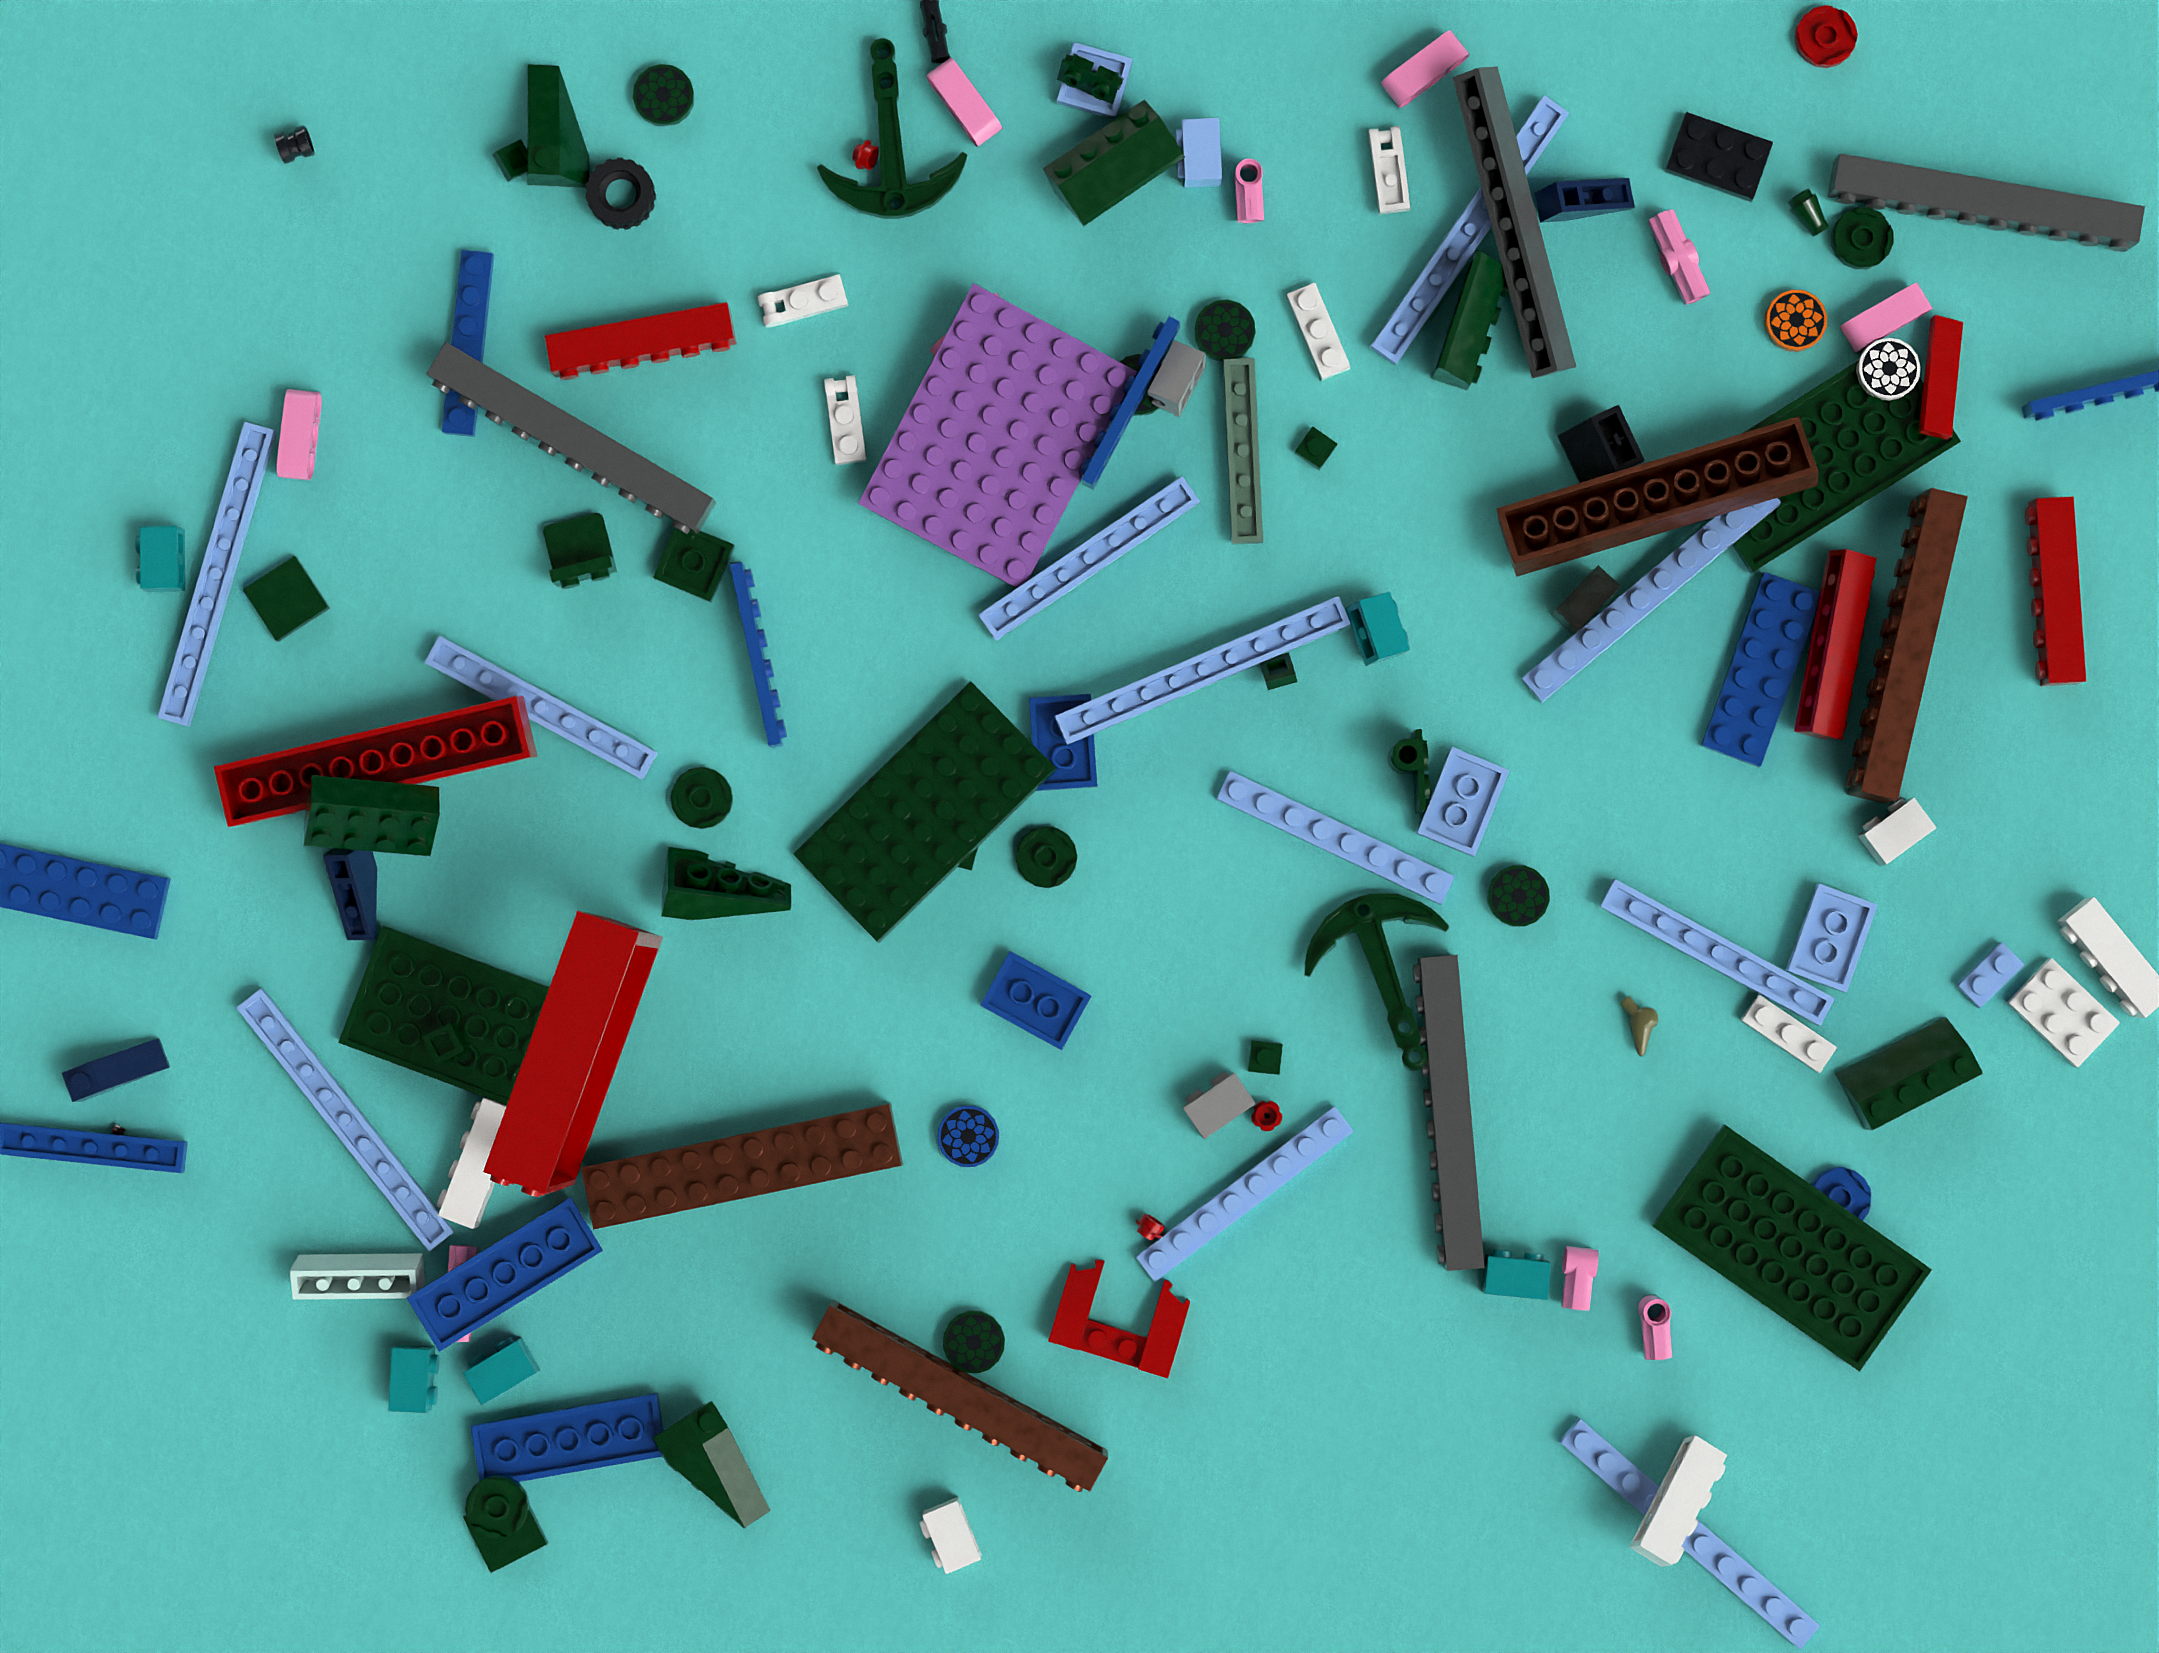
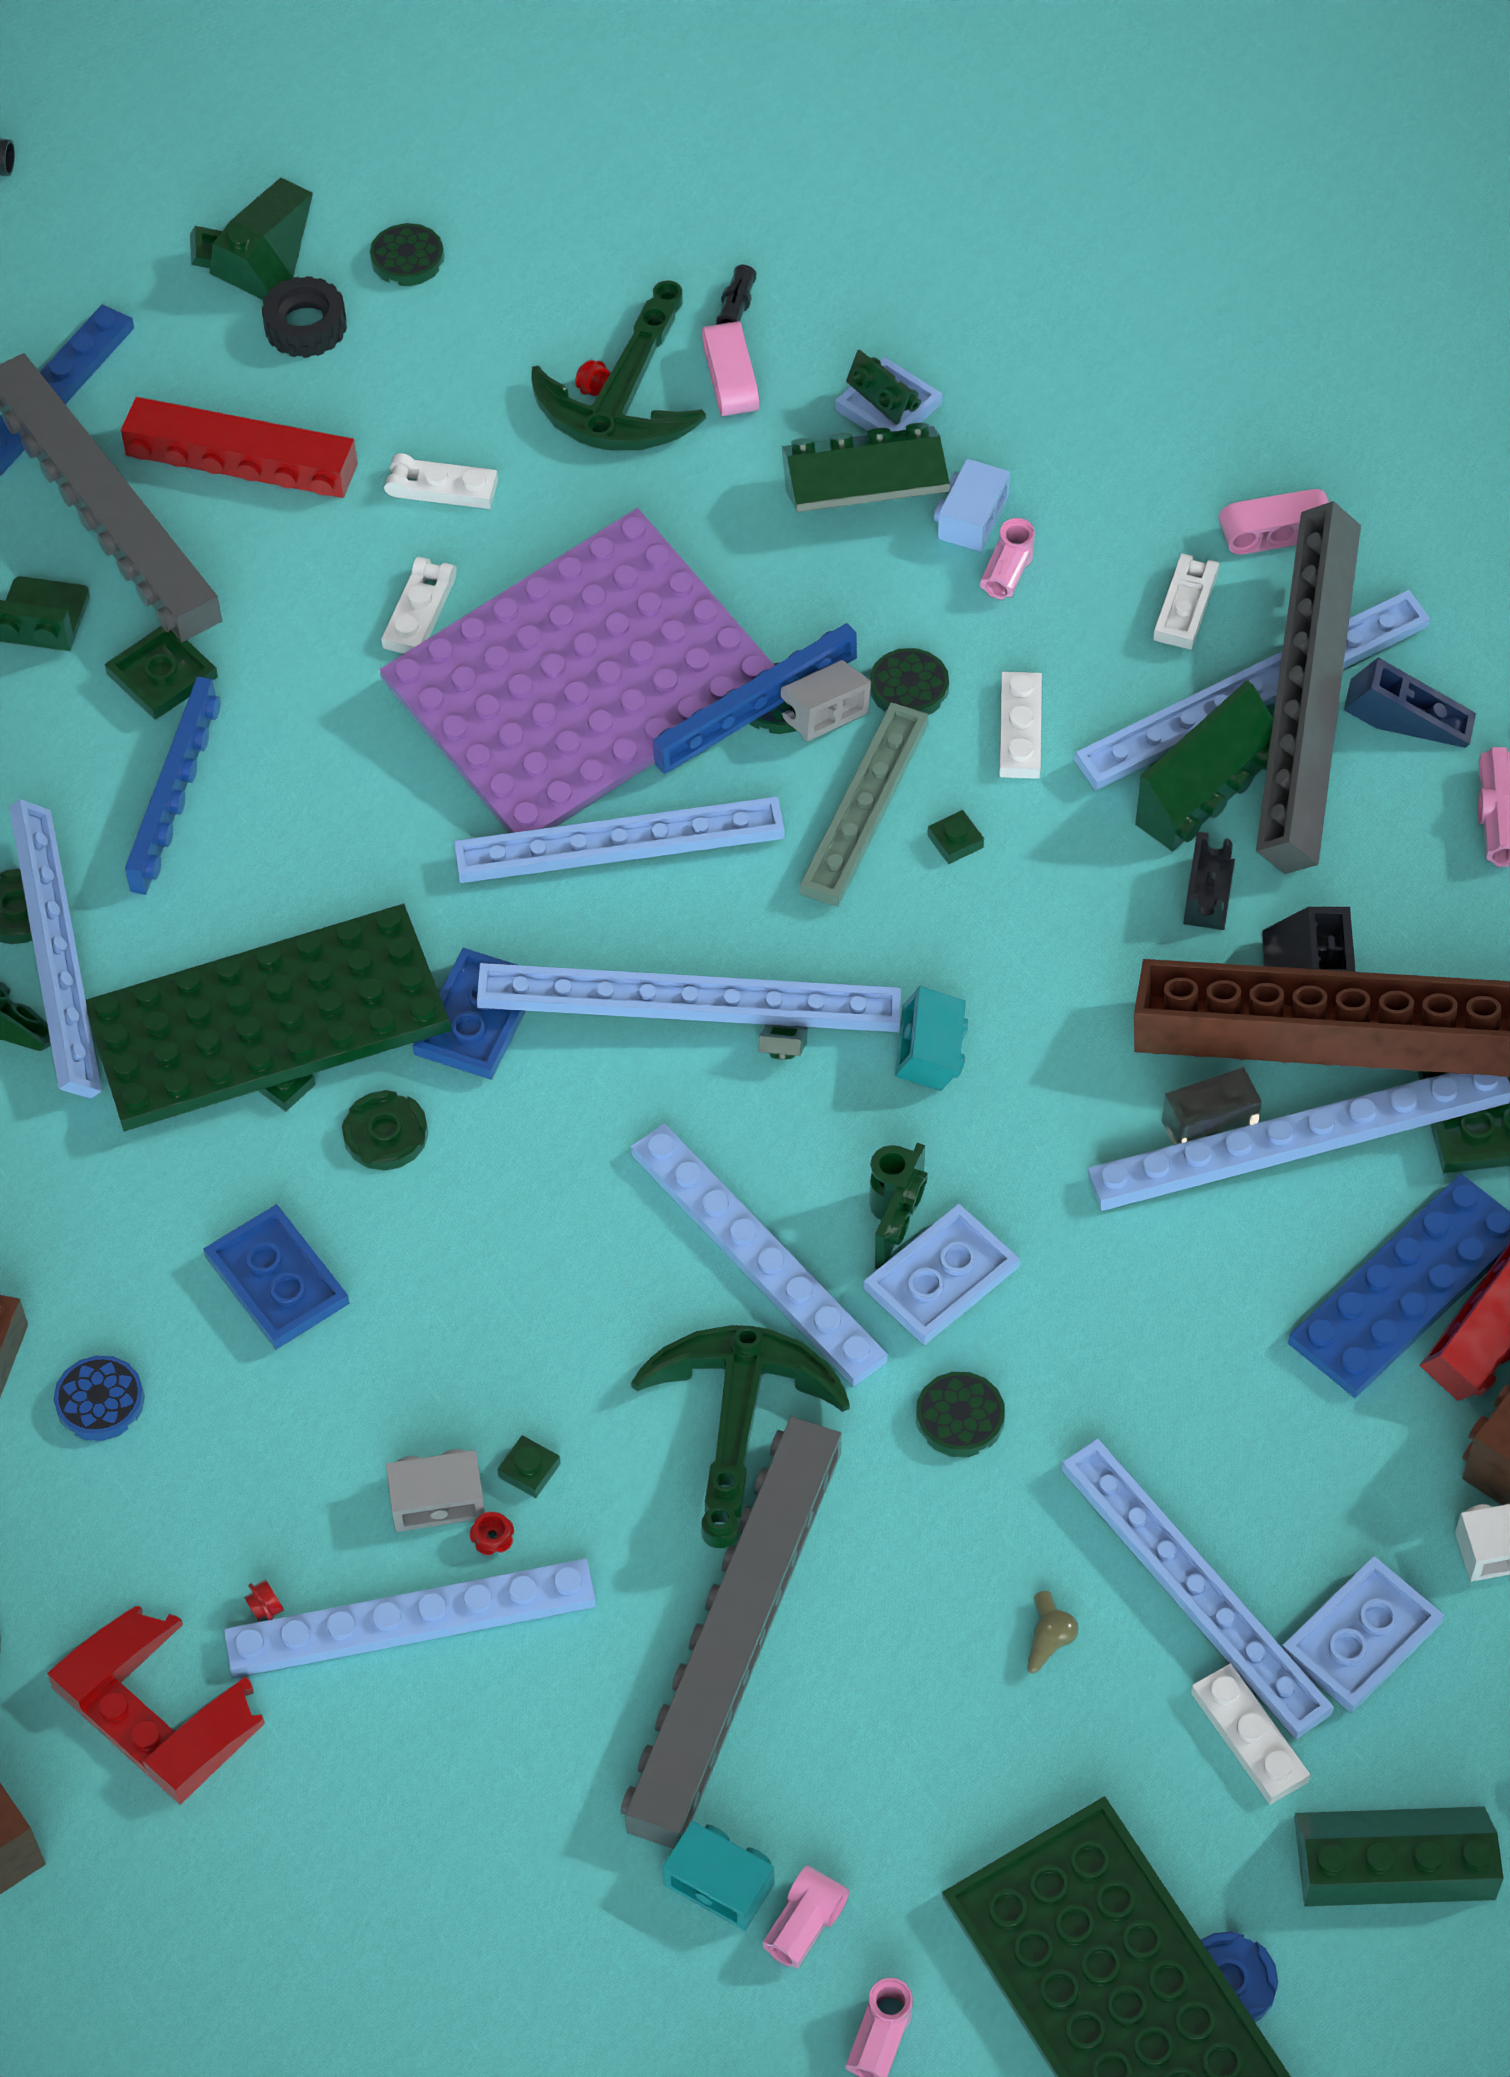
camera: 25 degrees right, 30 degrees down
(754, 826) = (55, 950): none -> light blue plate
(1506, 413) = (1209, 884): none -> black hinge

